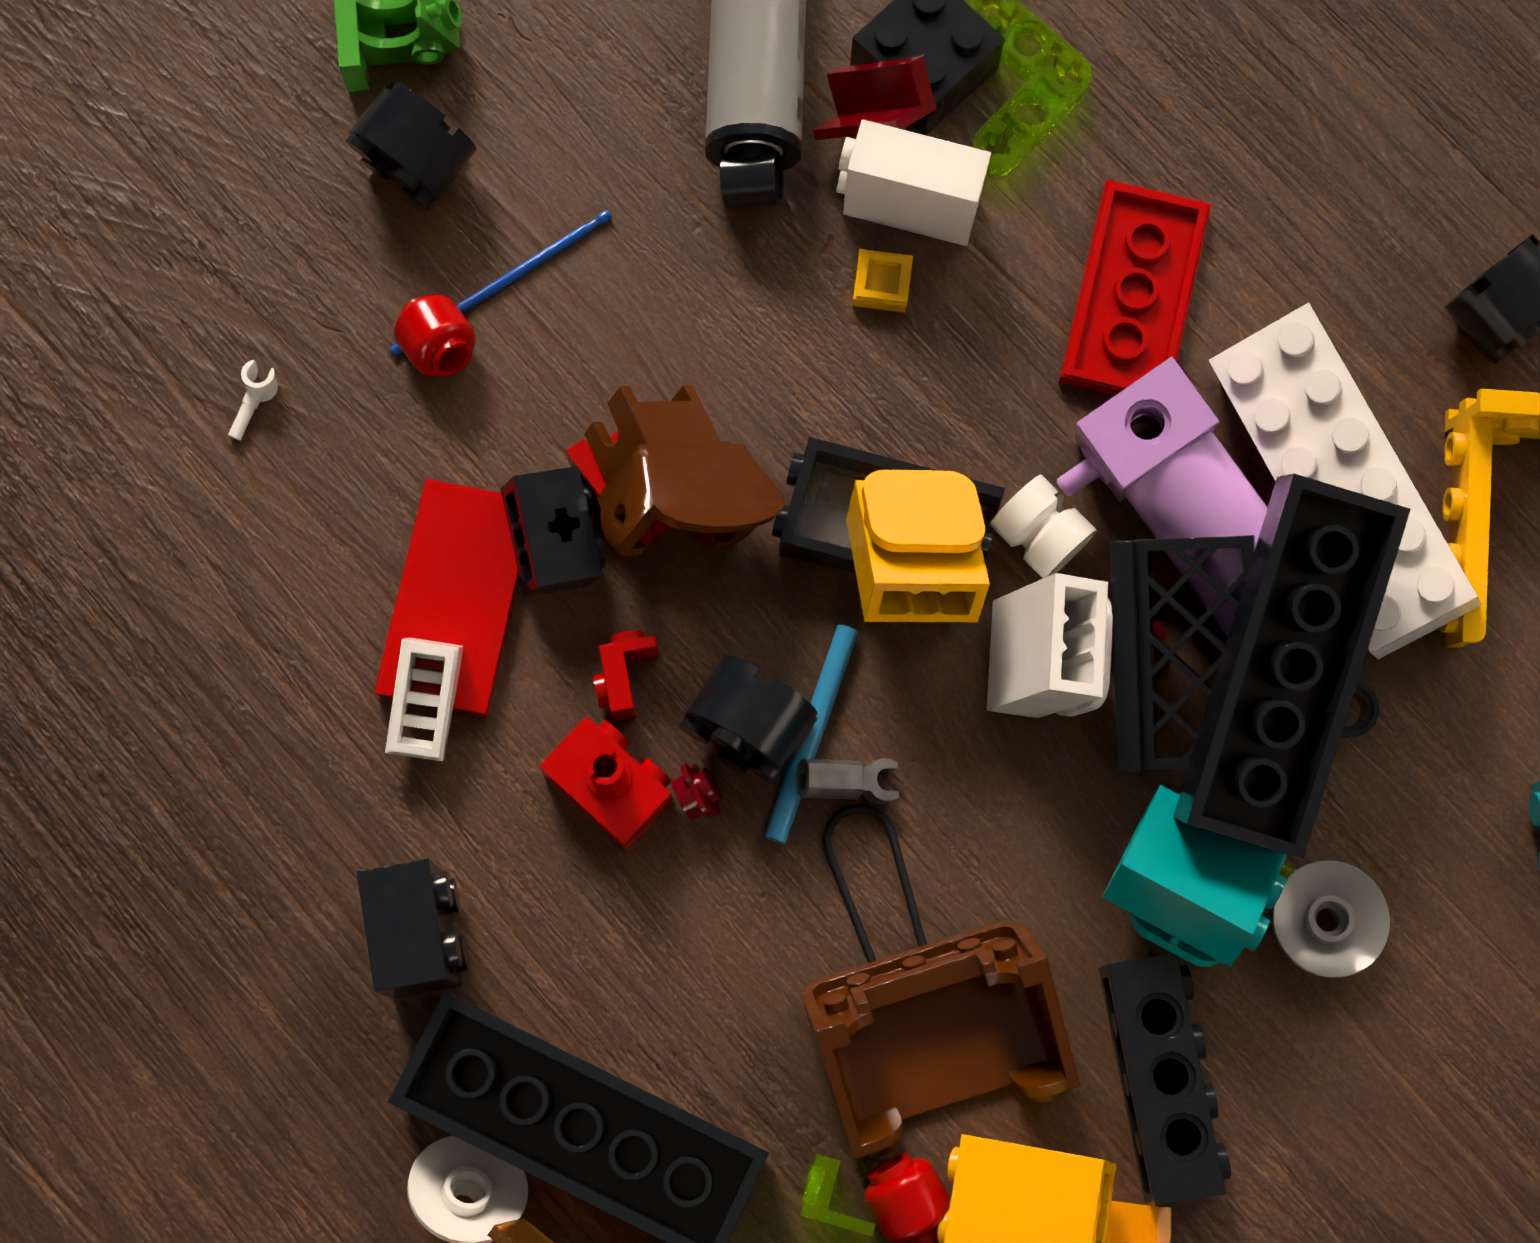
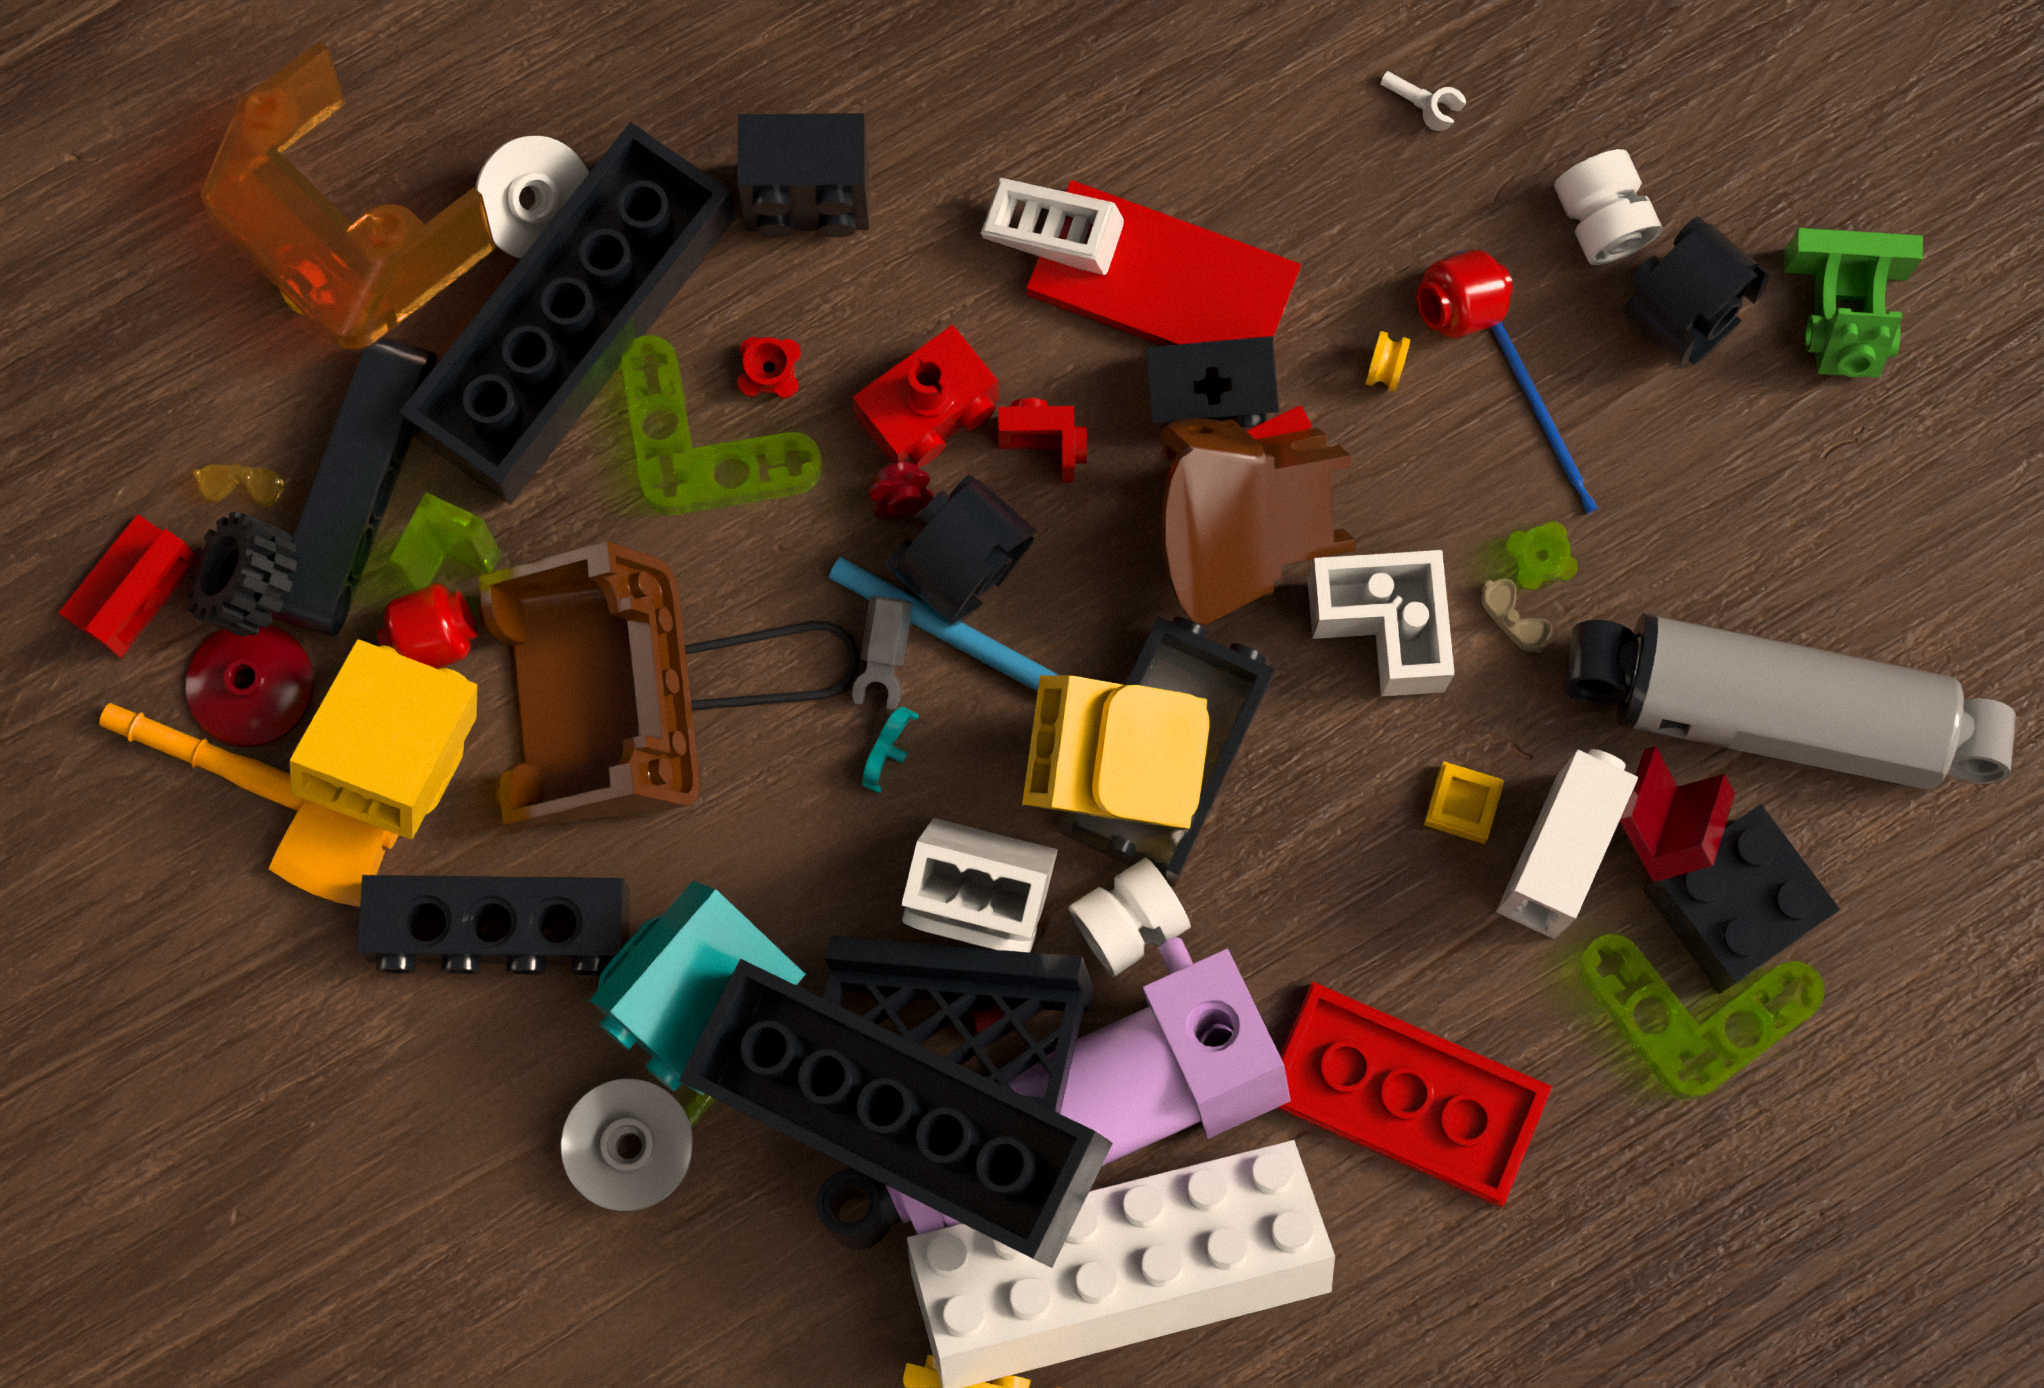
camera: 100 degrees right, 0 degrees up
(338, 226) = (1606, 203): none -> white wheel
(506, 392) = (1387, 361): none -> yellow bush
(582, 926) = (760, 351): none -> red plate
(657, 231) = (1545, 538): none -> clear neon green plate
(700, 980) = (699, 463): none -> clear neon green beam
(726, 250) = (1527, 633): none -> dark tan piece
(733, 342) = (1399, 602): none -> white brick
(929, 767) = (884, 747): none -> teal piece

